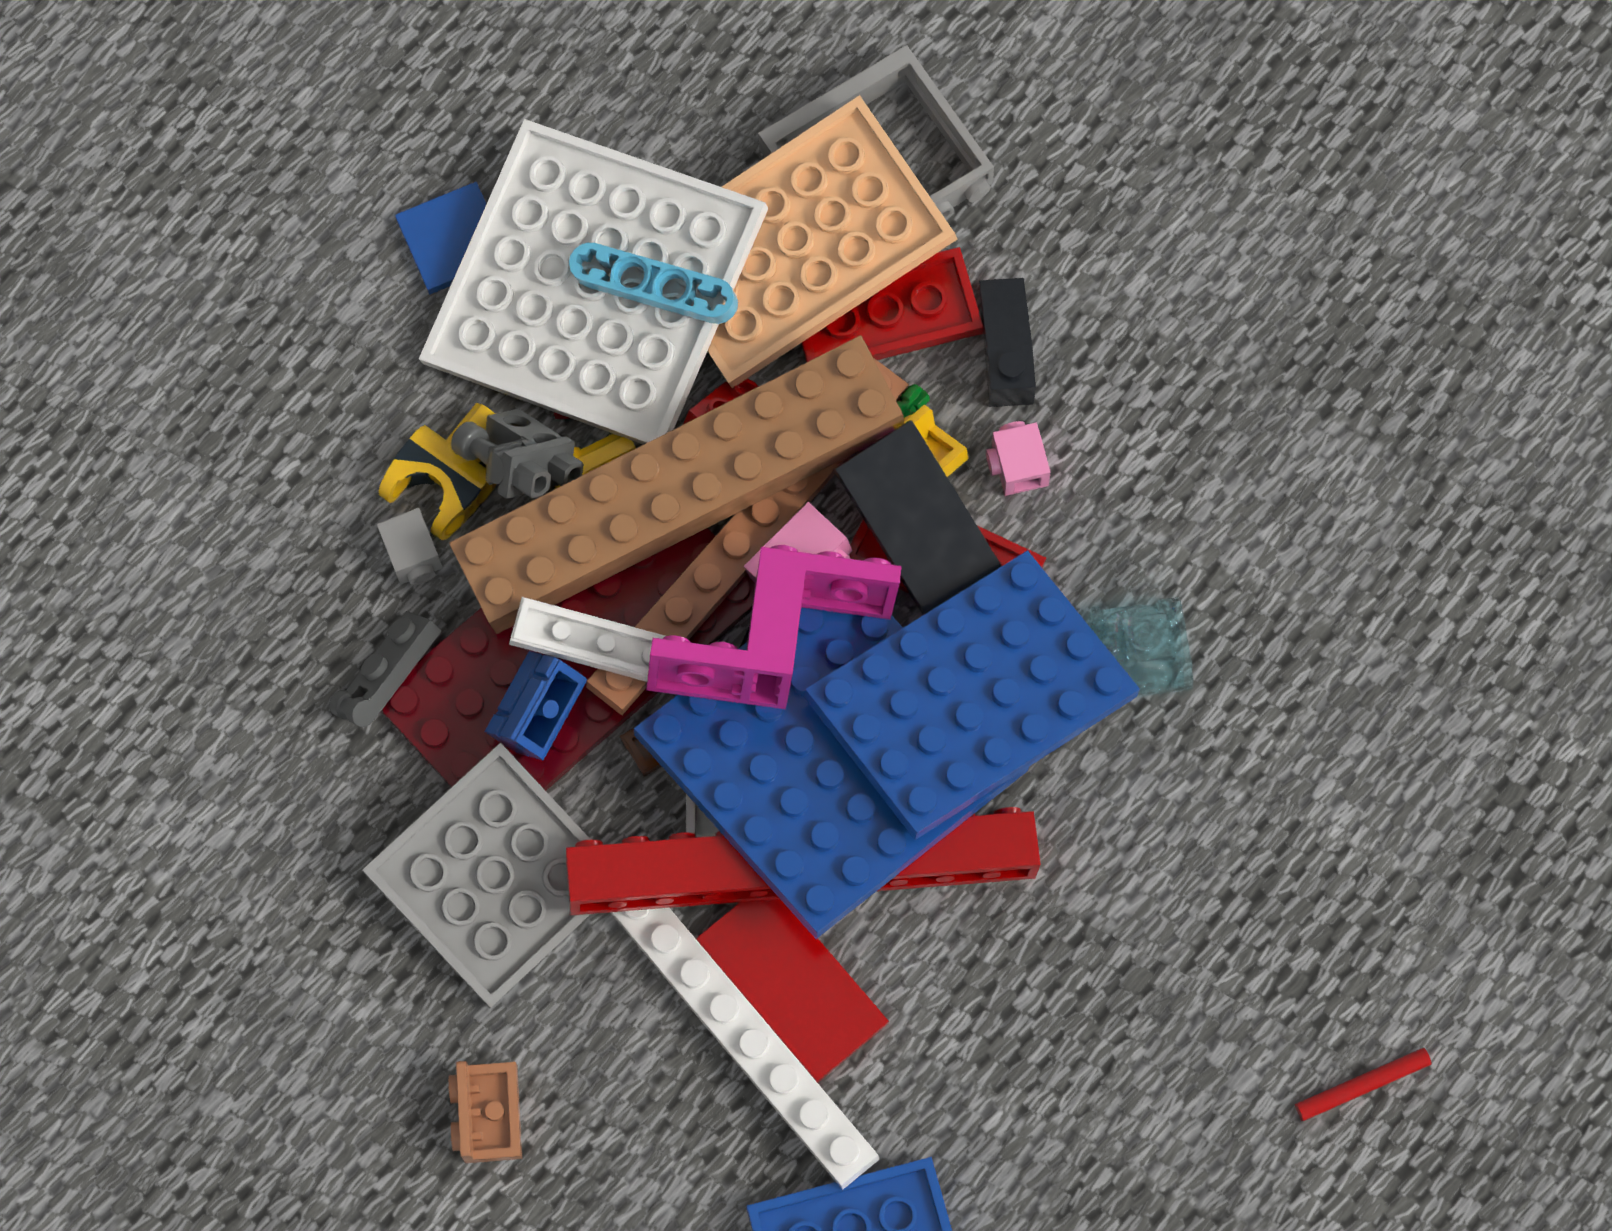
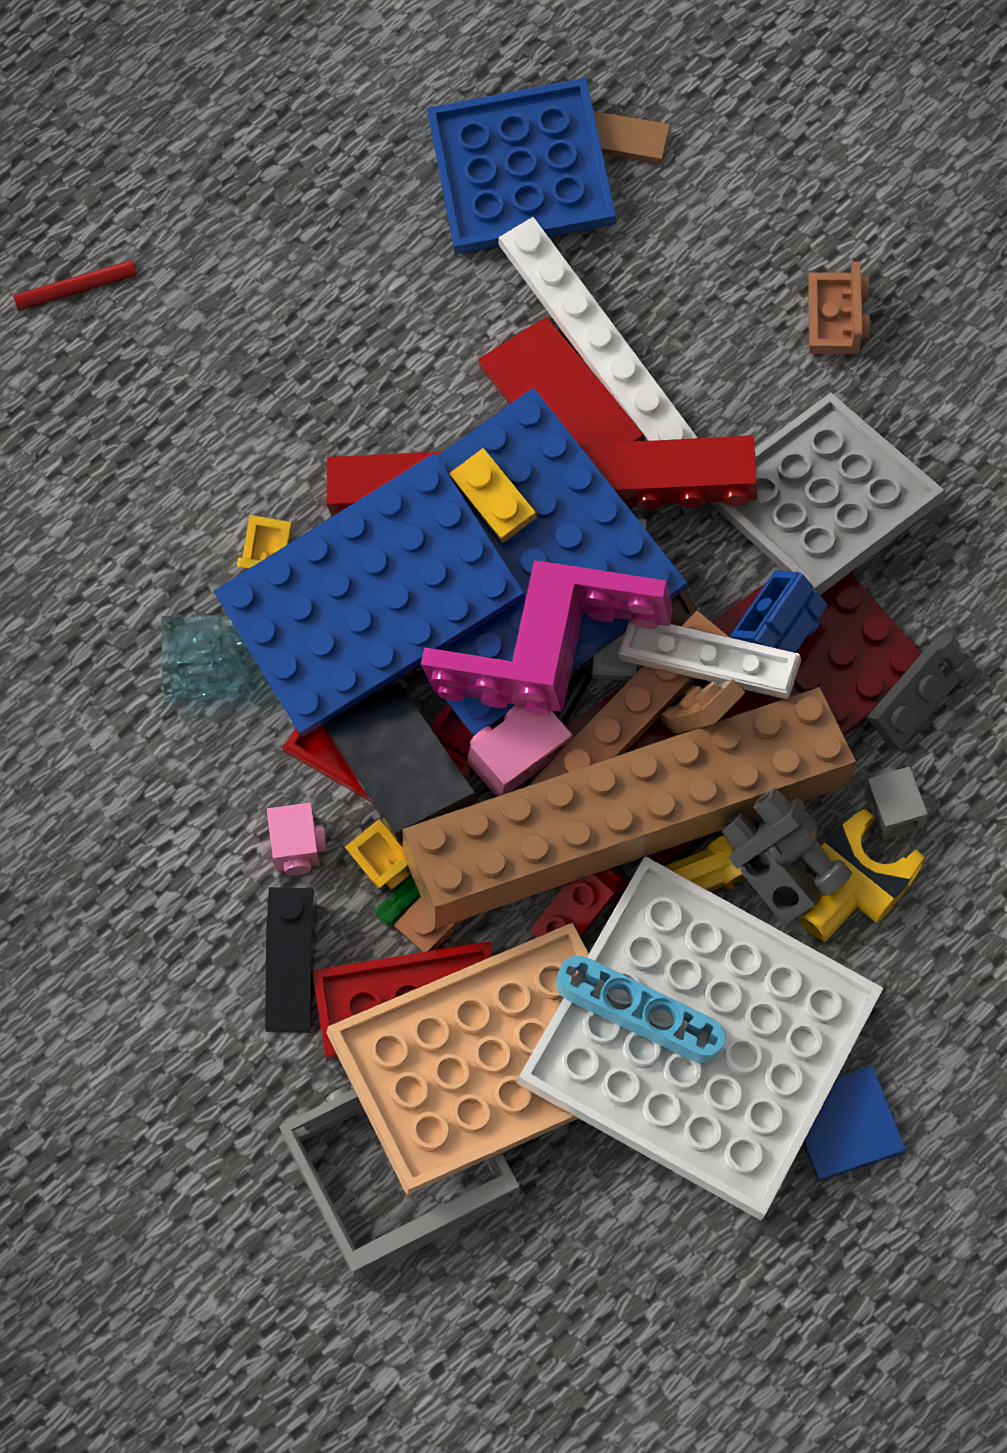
camera: 175 degrees left, 5 degrees down
(607, 584) = (701, 706): none -> medium nougat plate
(849, 799) = (493, 495): none -> yellow plate
(1095, 769) = (263, 539): none -> yellow bracket

